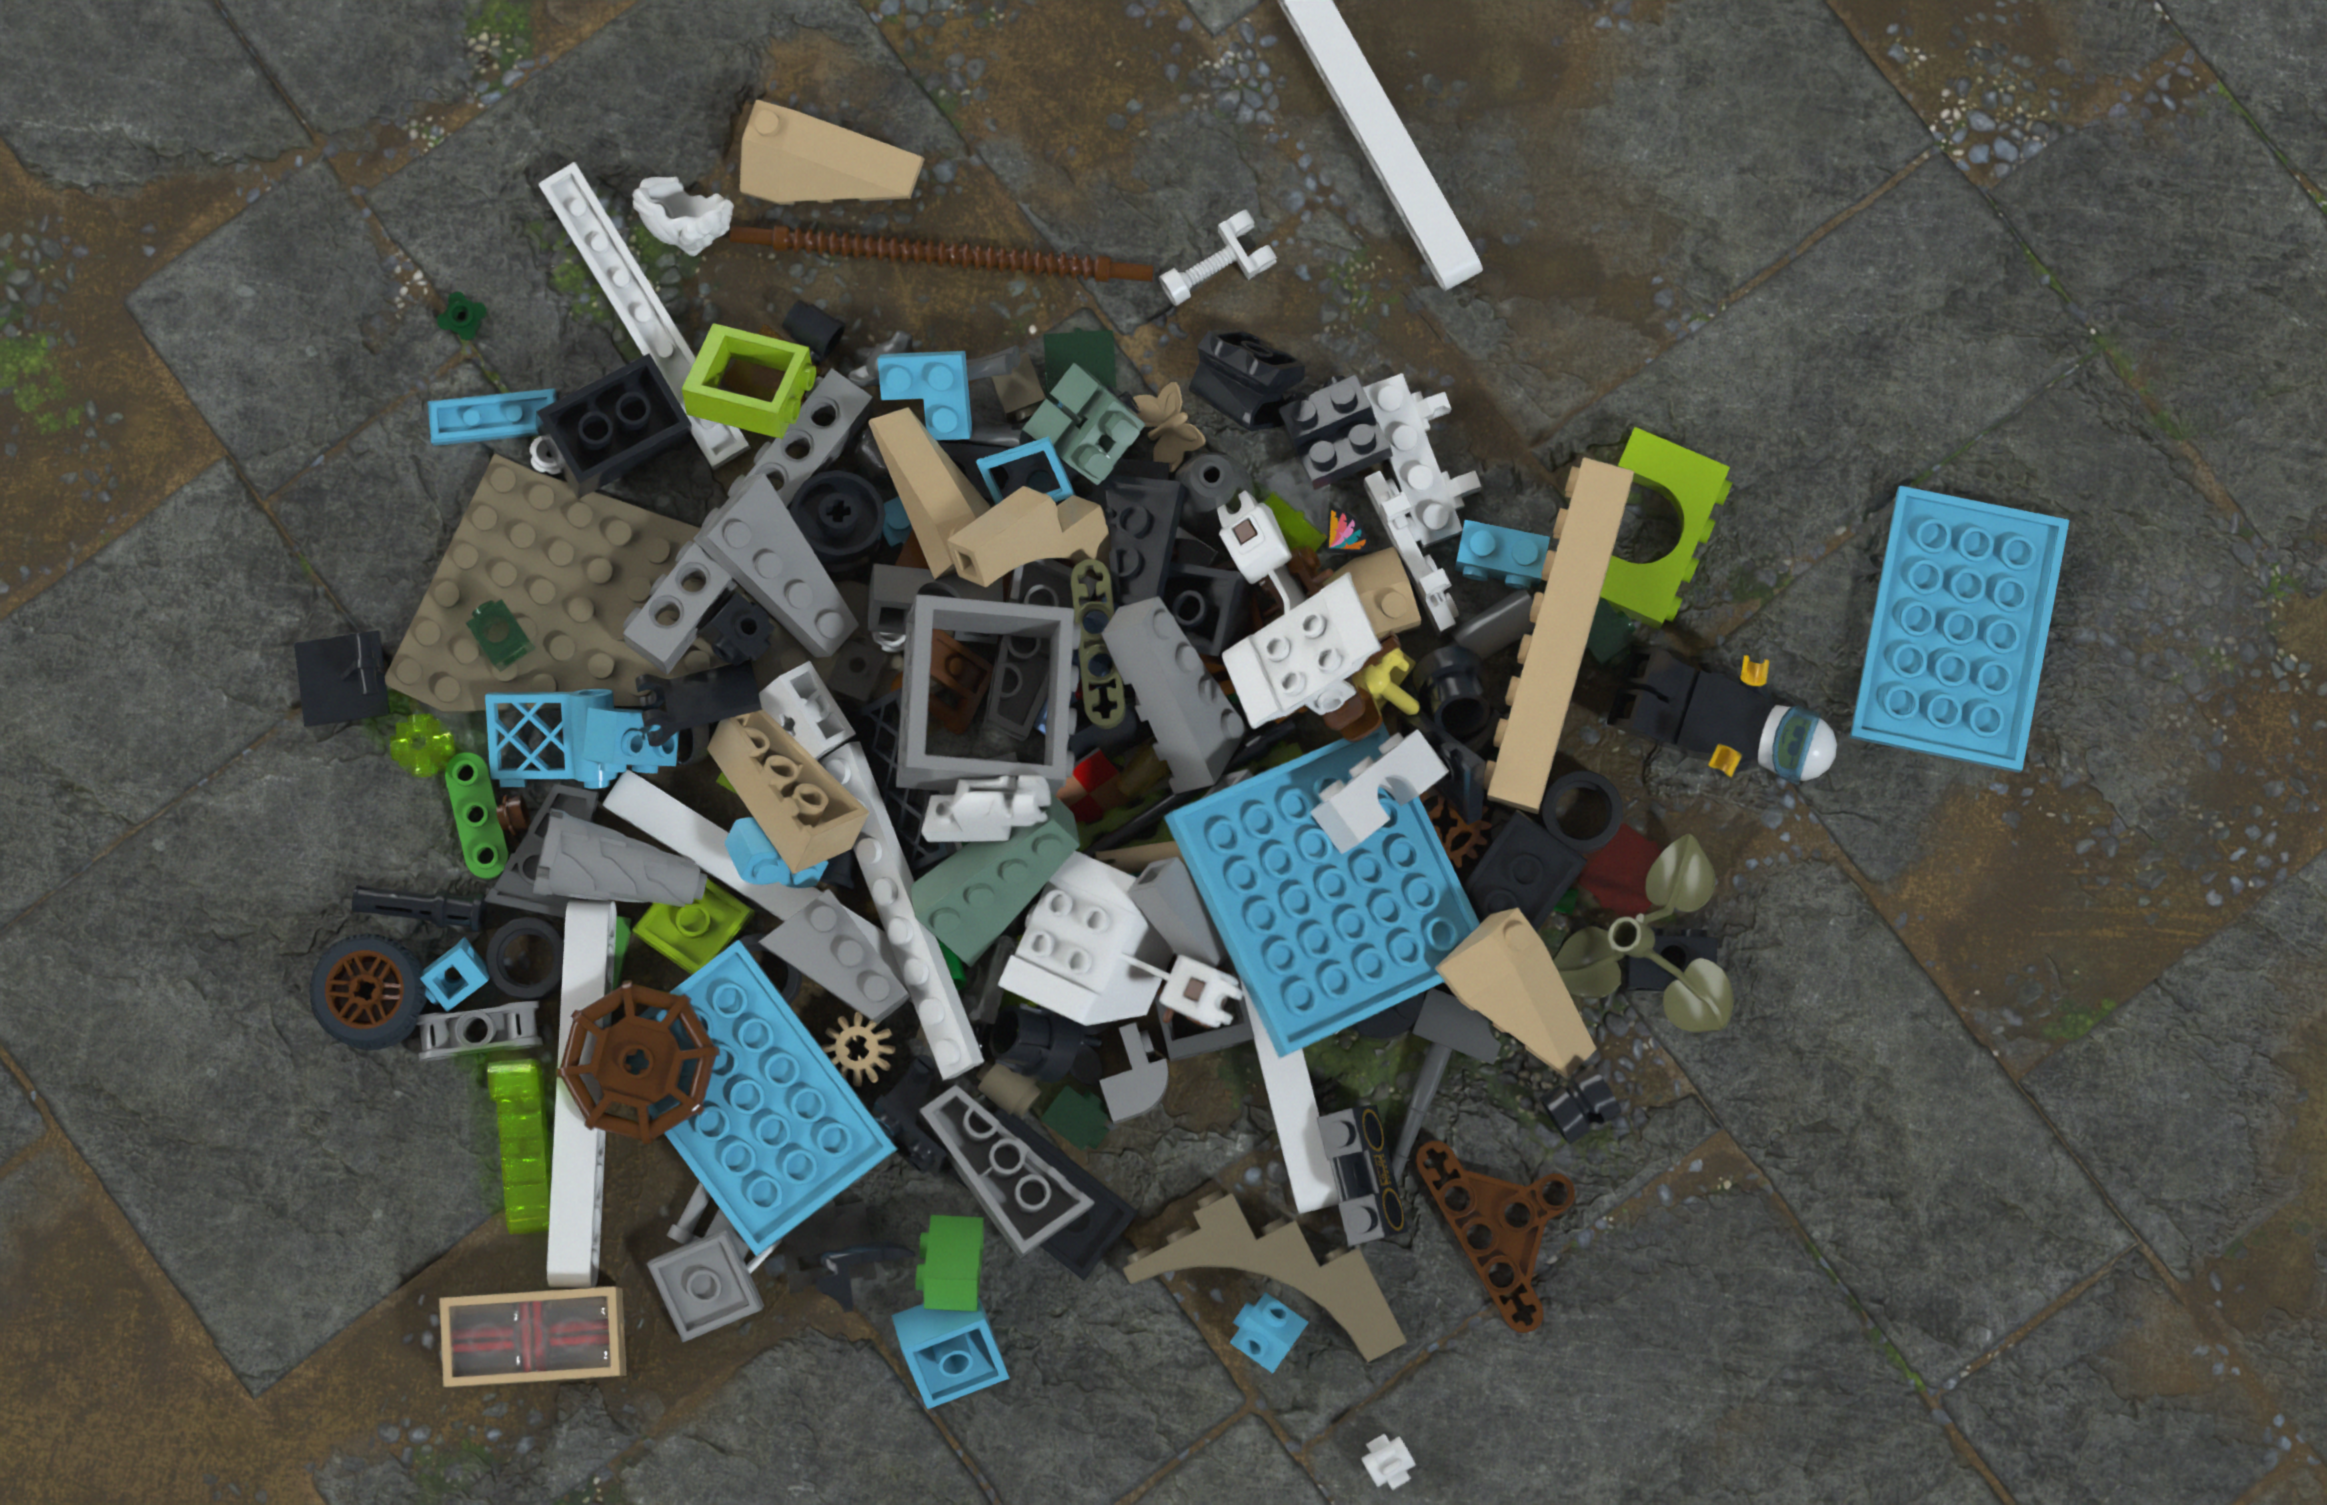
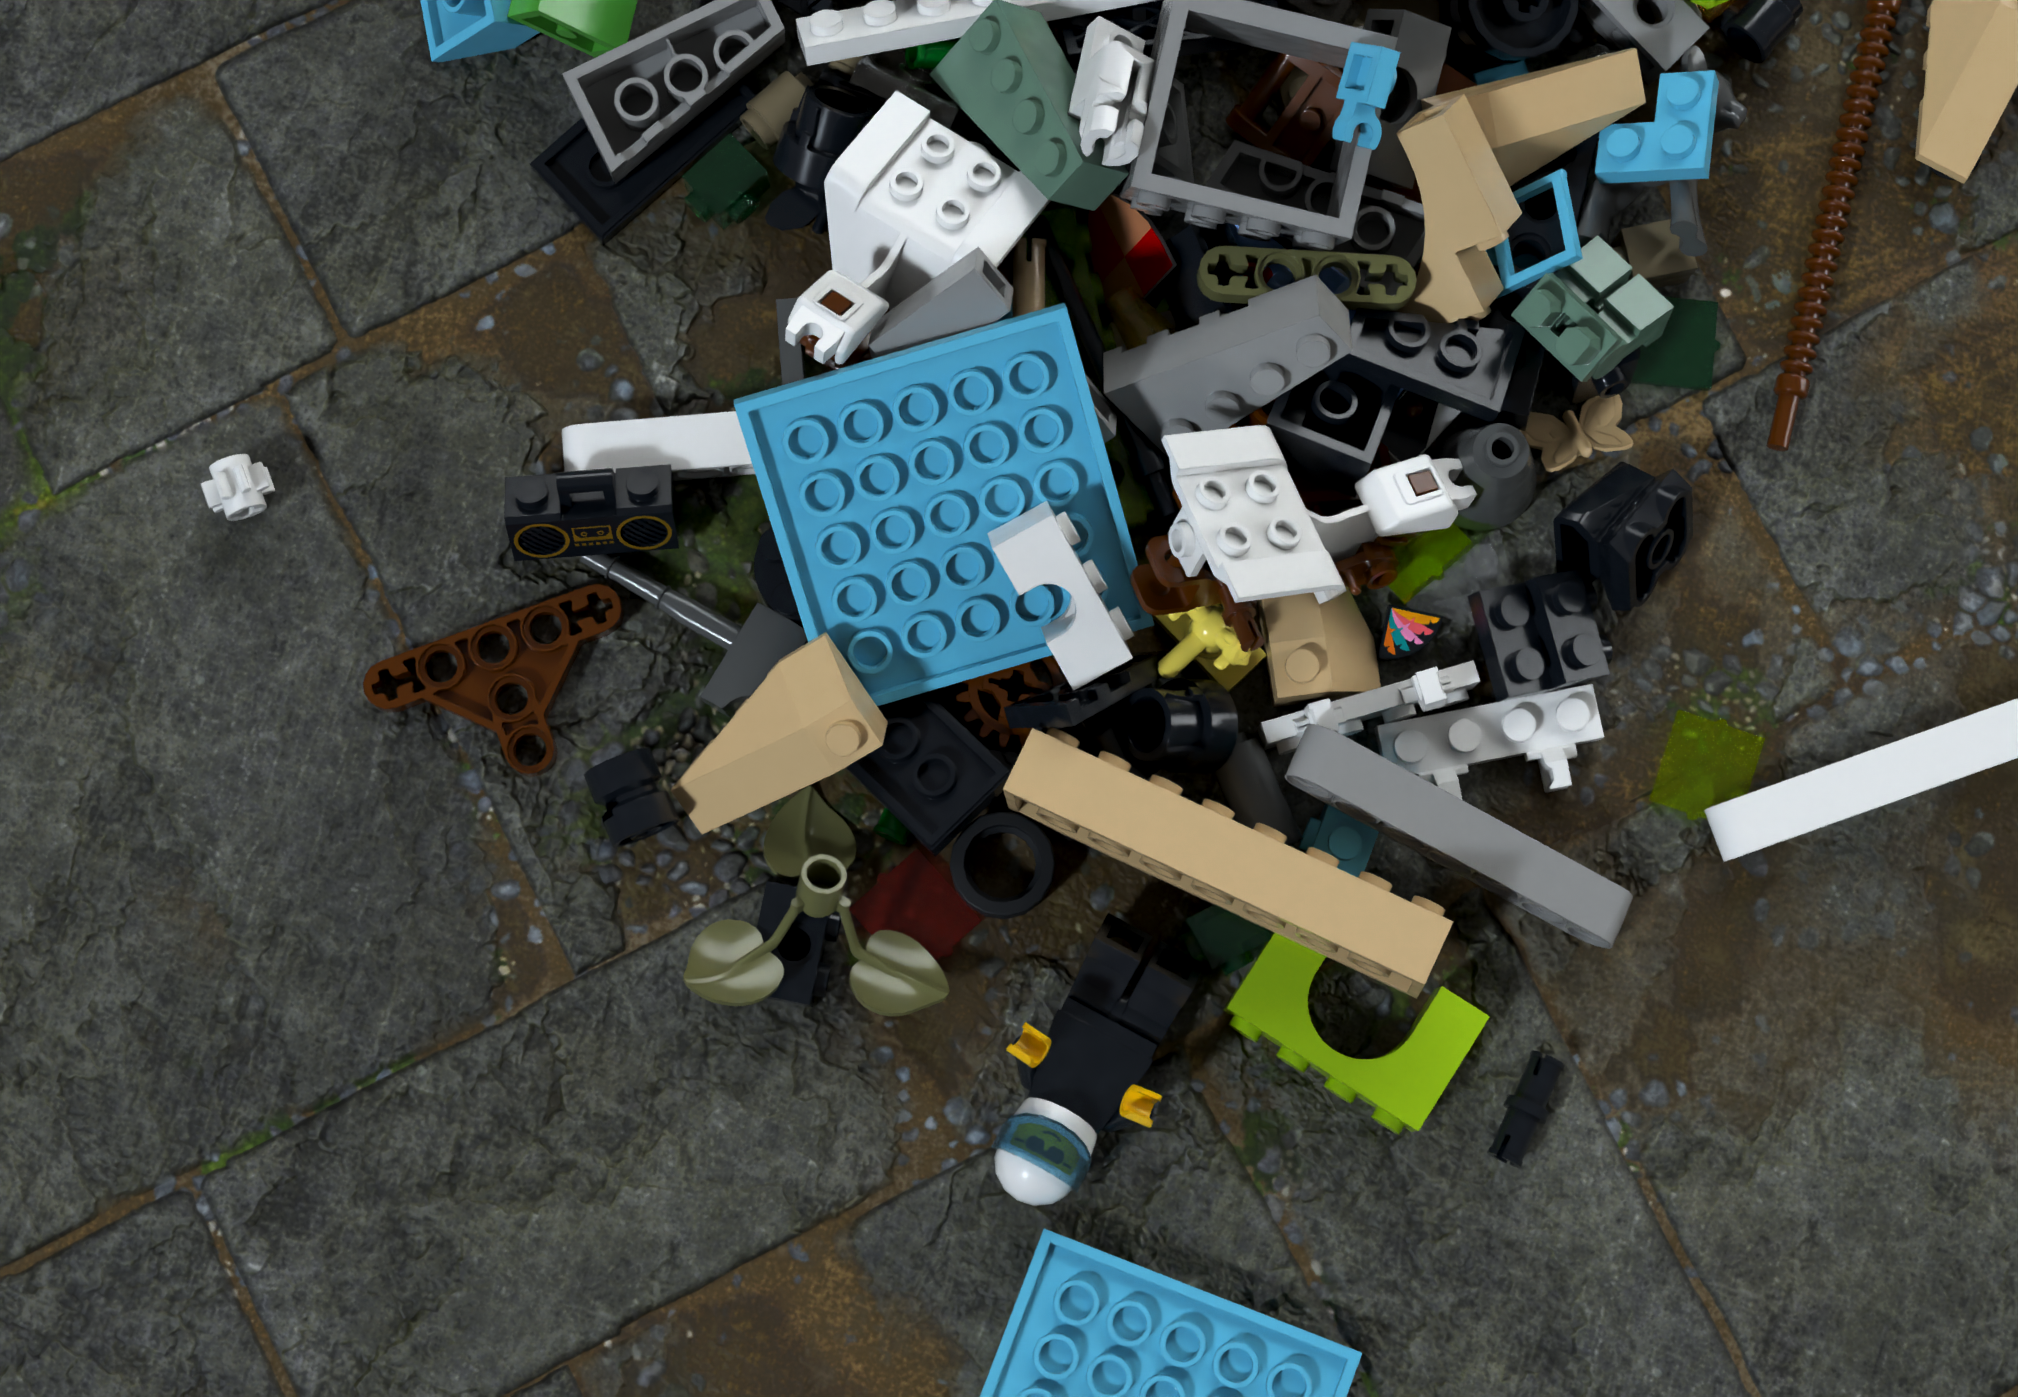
camera: 90 degrees right, 0 degrees up
(964, 610) = (1365, 85): none -> medium azure plate
(1138, 1089) = (752, 267): light grey brick -> none
(1178, 284) = (1775, 582): white bar -> none
(1226, 1241) = (460, 466): dark tan arch -> none
(1267, 1331) = (423, 366): medium azure brick -> none
(1408, 295) = (1704, 764): none -> clear neon green piece
(1505, 468) = (1458, 836): none -> light grey beam
(1695, 391) = (1526, 1109): none -> black pin

